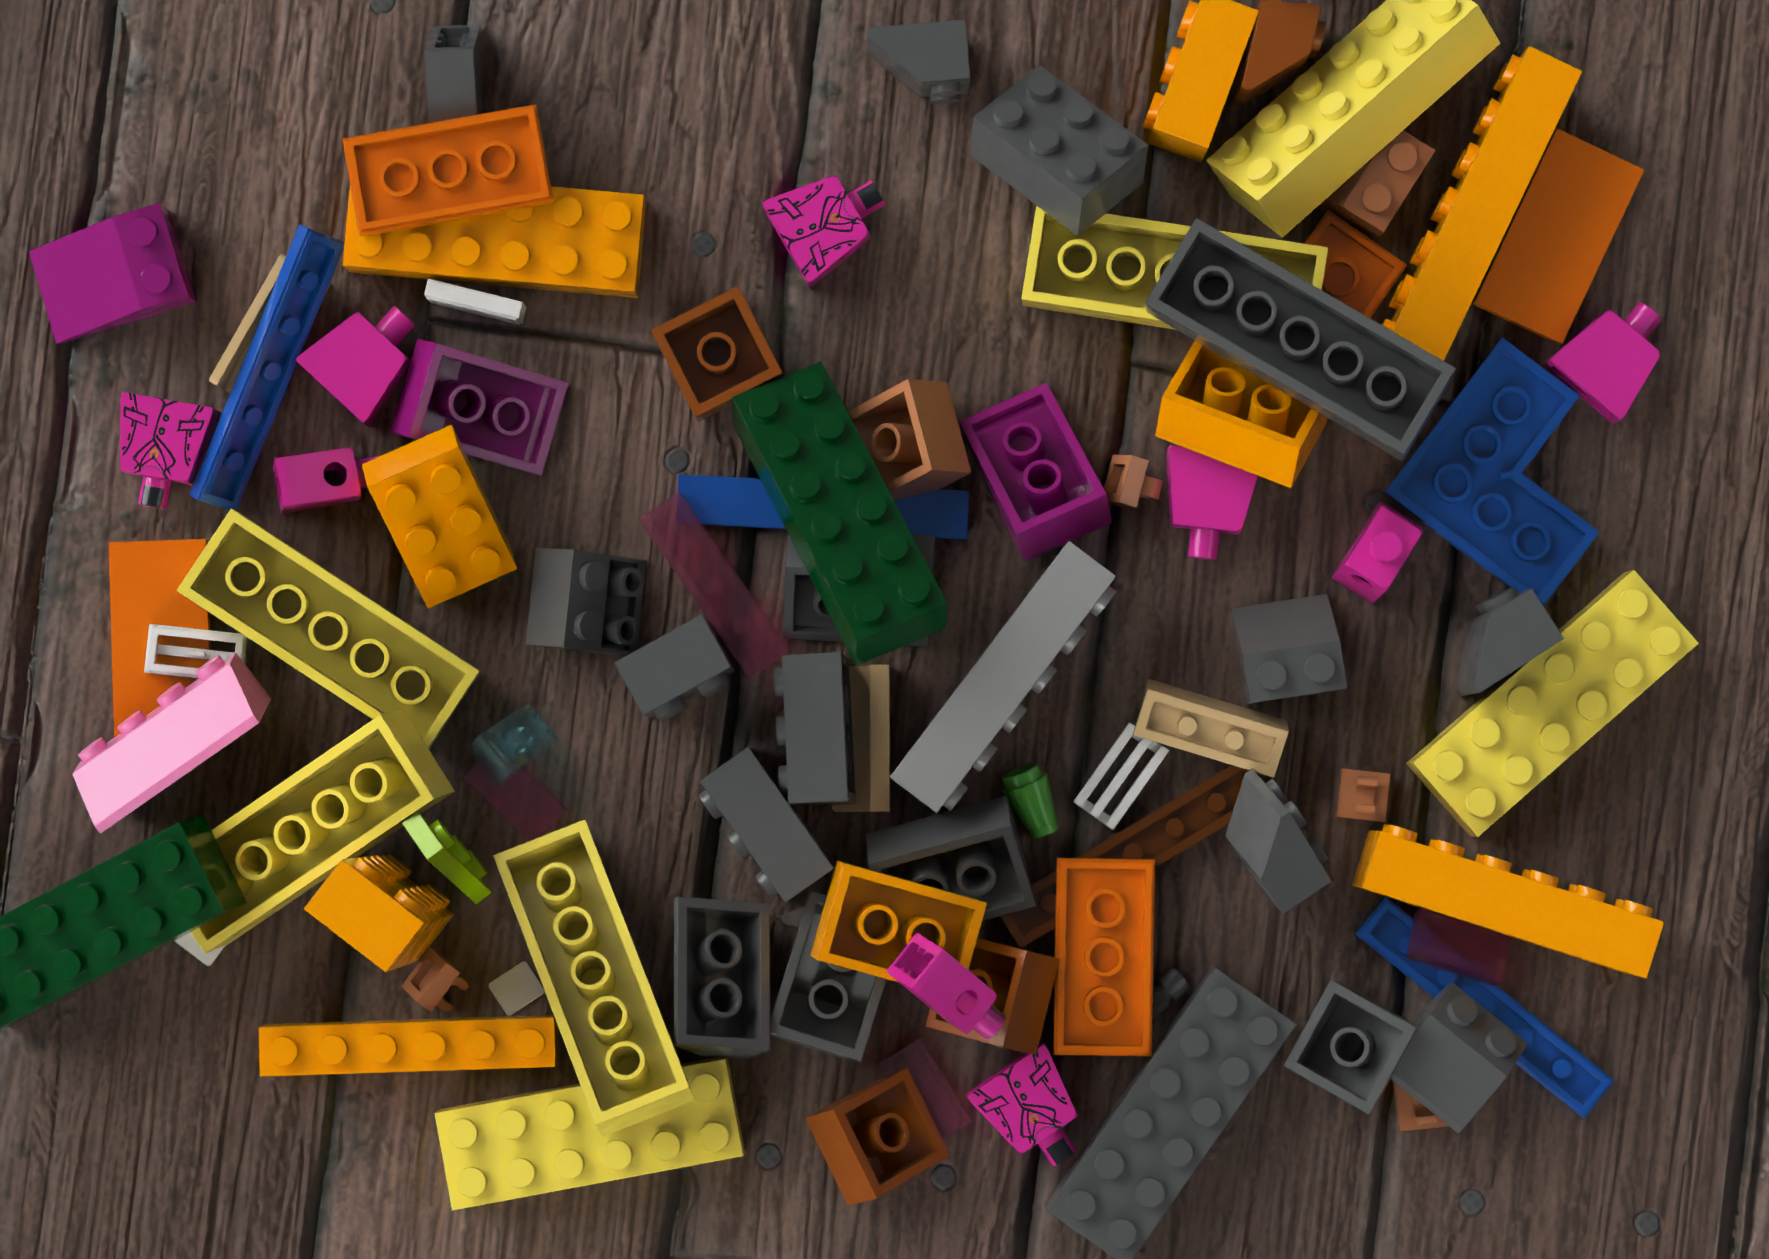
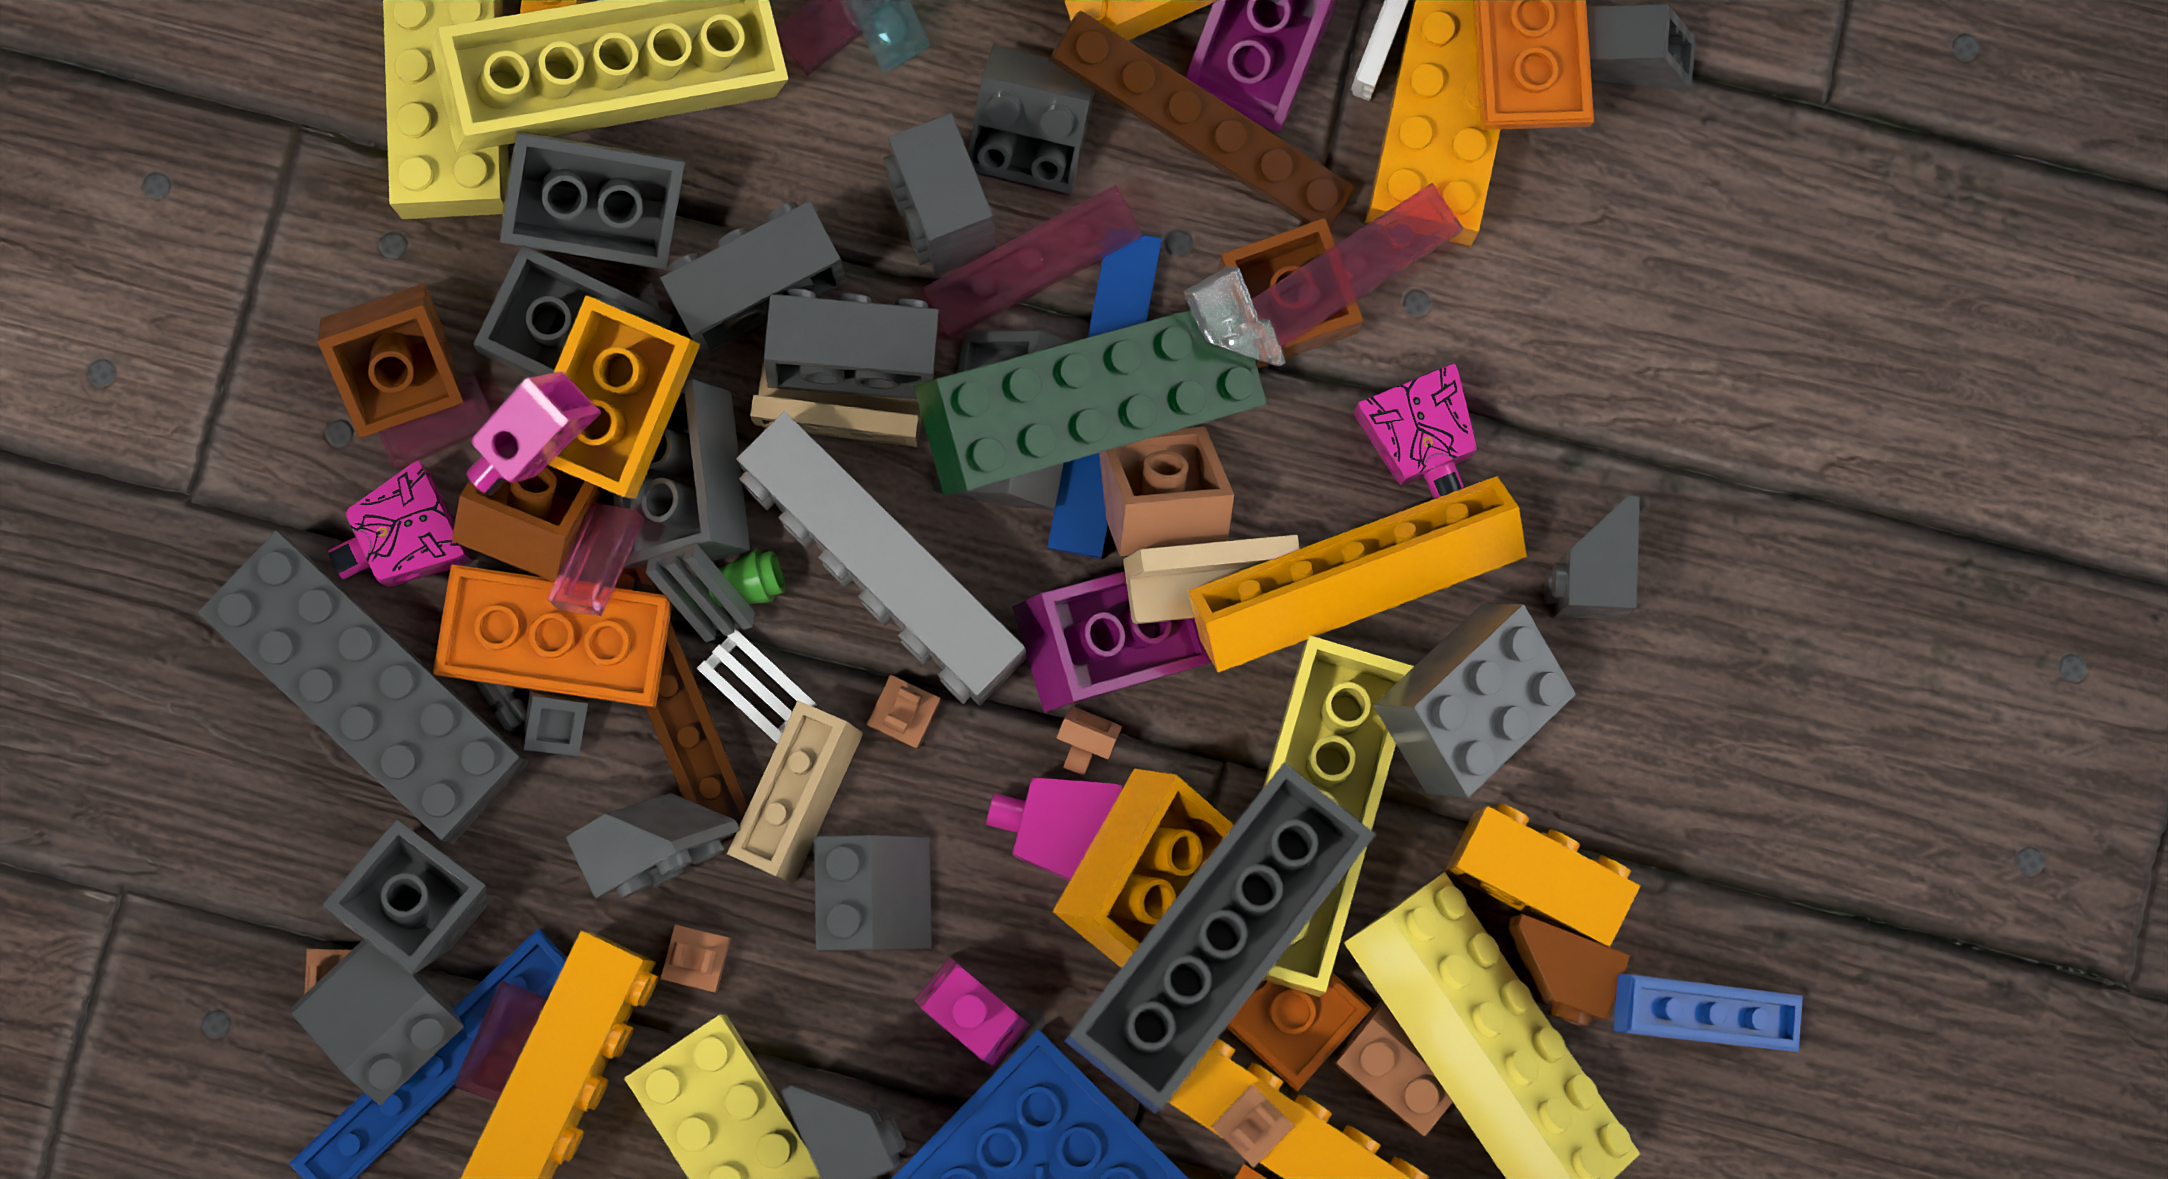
camera: 95 degrees right, 5 degrees down
(574, 450) = (1199, 121): none -> reddish brown plate
(693, 298) = (1357, 265): none -> clear pink tile
(756, 400) = (1229, 317): none -> clear slope
(958, 264) = (1358, 573): none -> light orange brick
(979, 393) = (1162, 576): none -> tan panel
(1035, 926) = (596, 559): none -> clear pink tile
(1054, 839) = (692, 595): none -> dark grey tile
(1126, 645) = (903, 712): none -> nougat tile
(1178, 946) = (554, 723): none -> dark grey plate
(1451, 294) = (1252, 1125): none -> nougat tile

